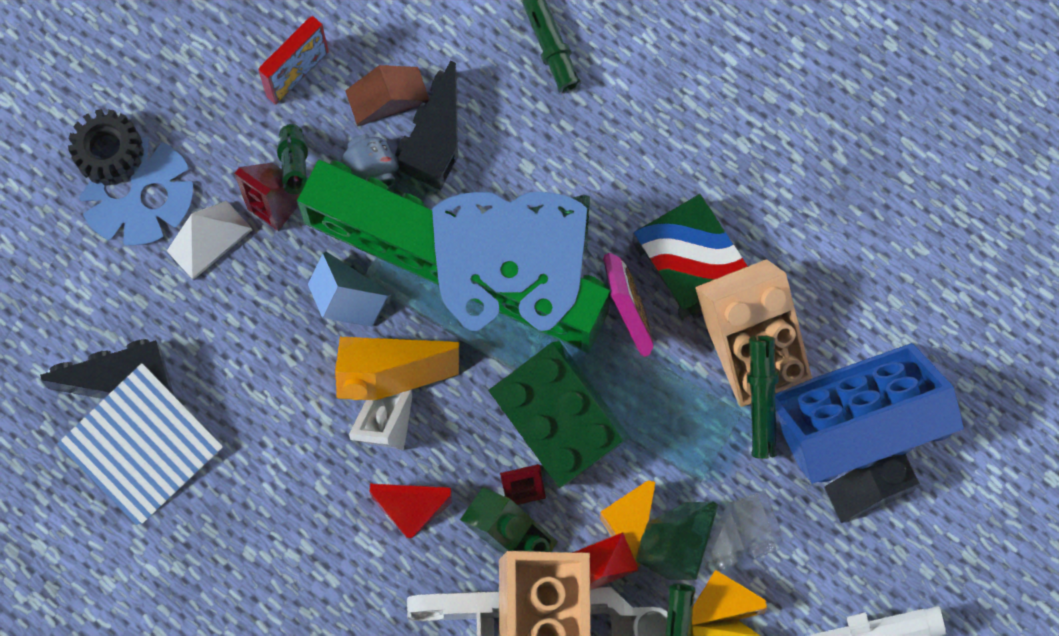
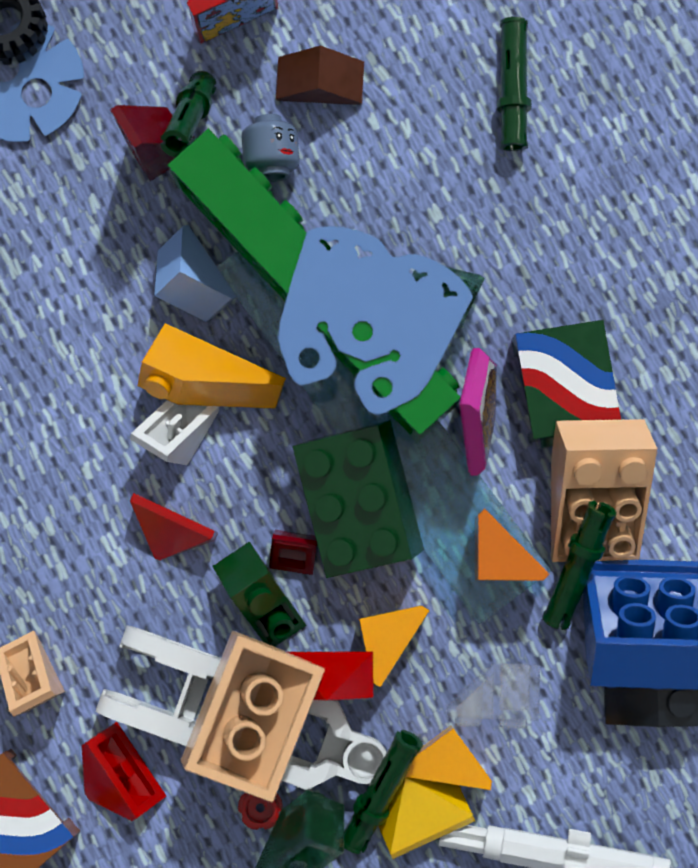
camera: 20 degrees right, 10 degrees up
(207, 237) = (73, 160): white slope -> none
(433, 143) = (347, 150): black slope -> none
(677, 540) = (428, 679): clear green slope -> none
(697, 413) = (501, 555): none -> orange slope

